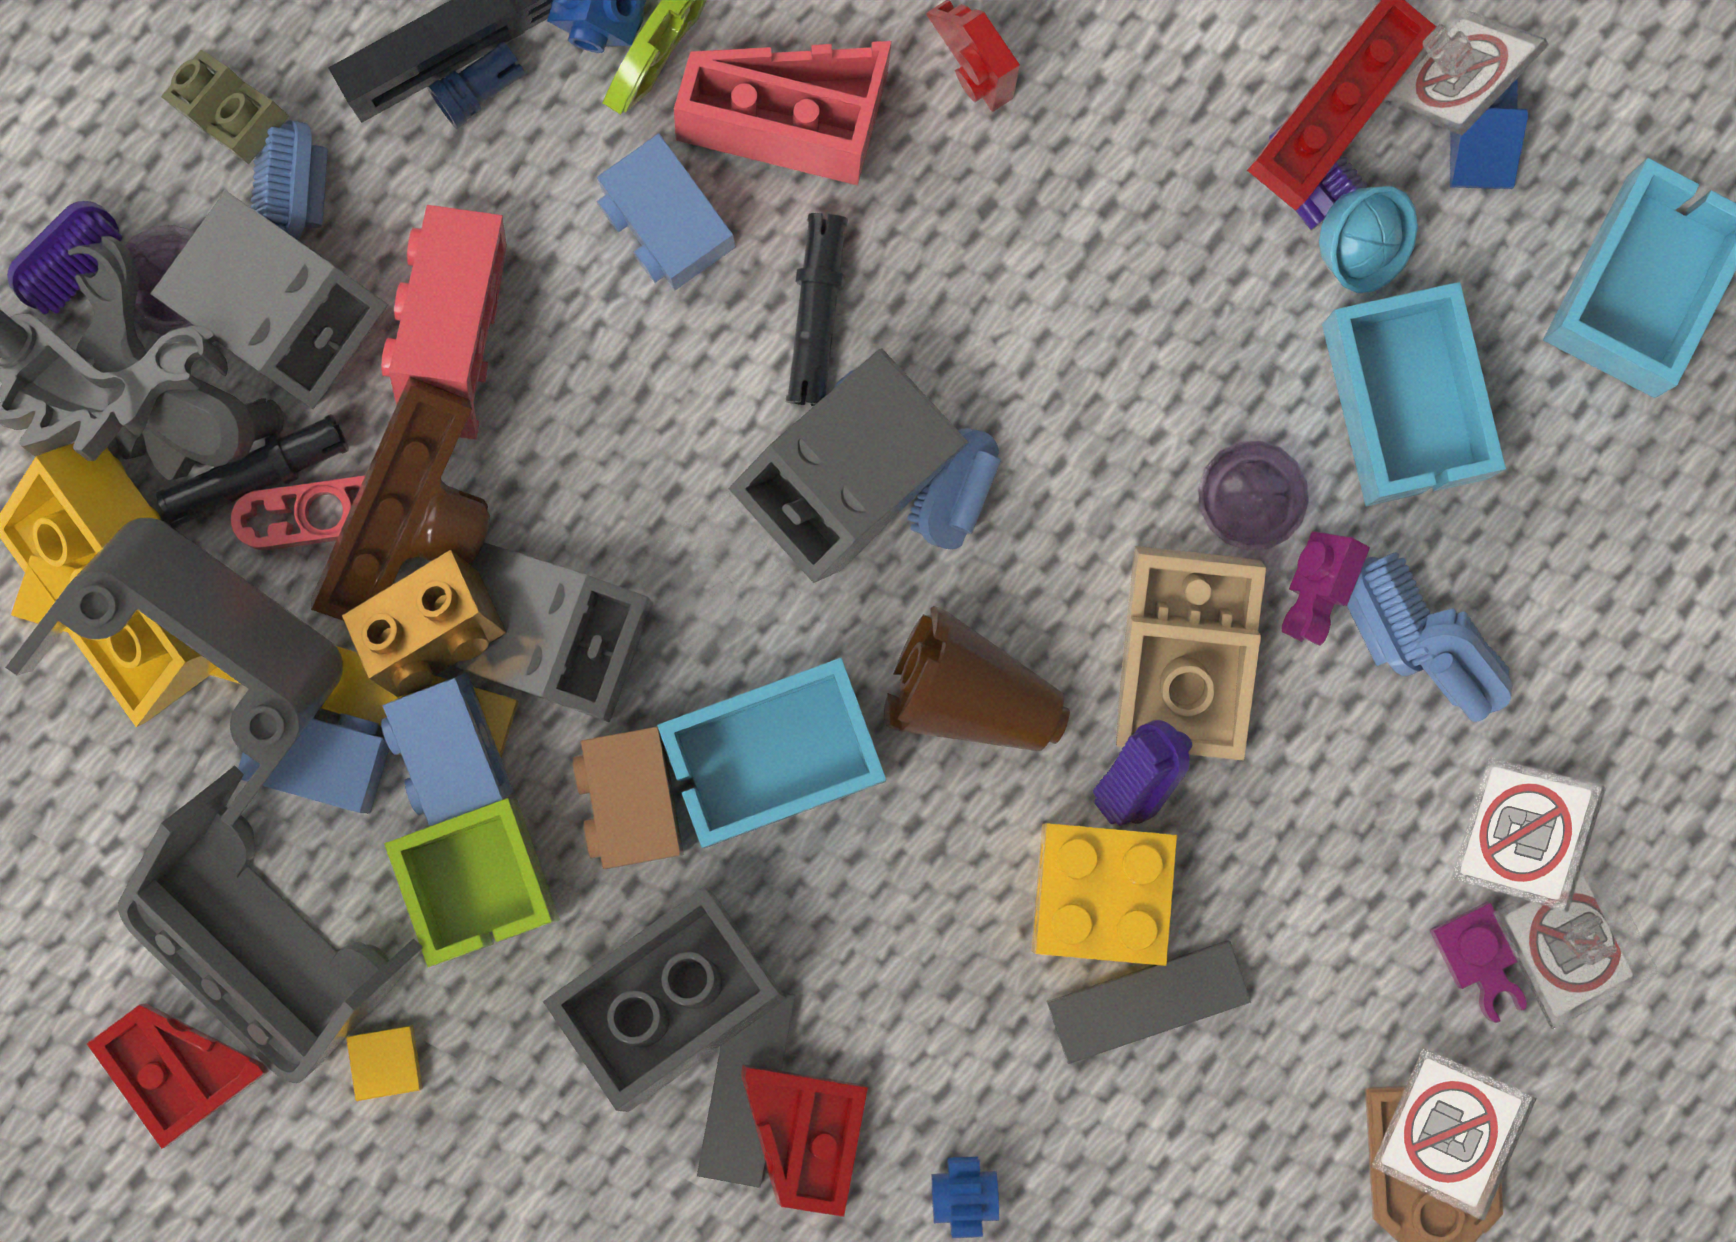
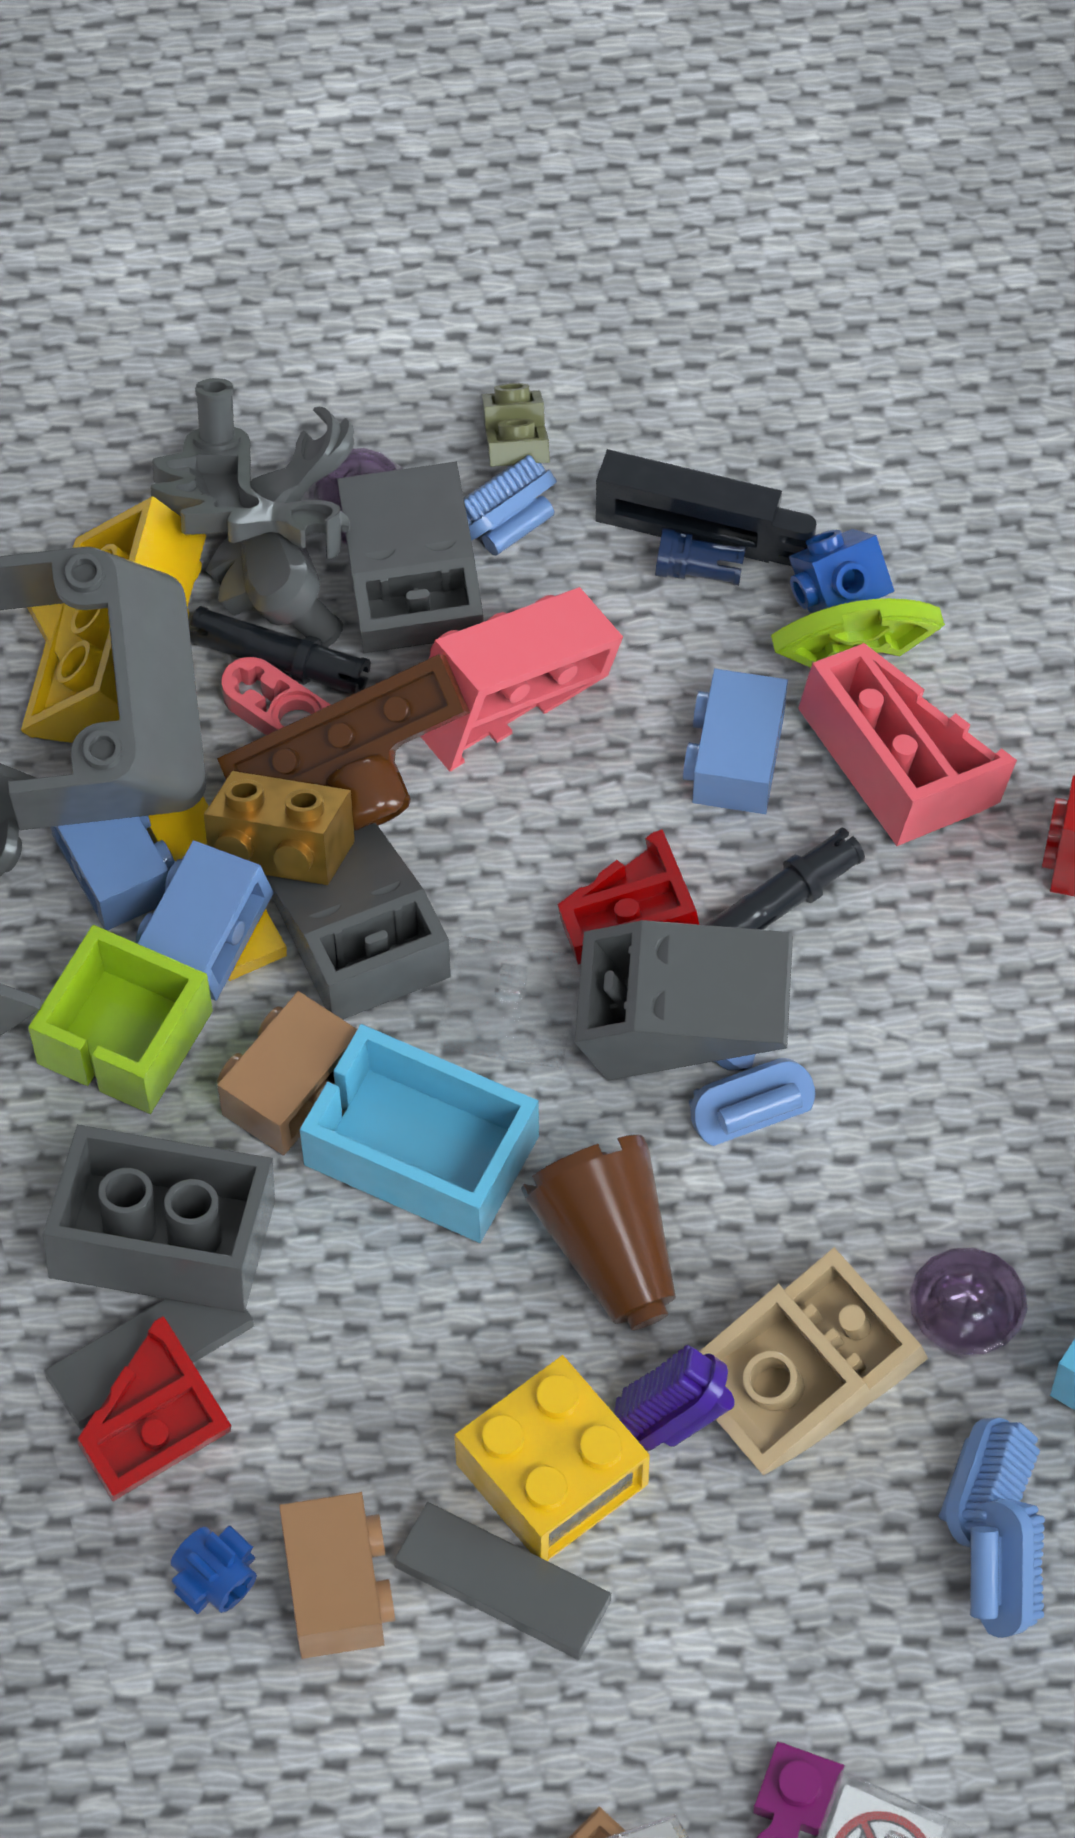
camera: 50 degrees right, 25 degrees down
(45, 271) = (283, 416): dark purple piece -> none
(721, 420) = (642, 890): none -> red wing
(1044, 1118) = (333, 1574): none -> medium nougat brick
(1323, 578) = (968, 1401): magenta plate -> none
(1528, 833) = (927, 1733): piece -> none

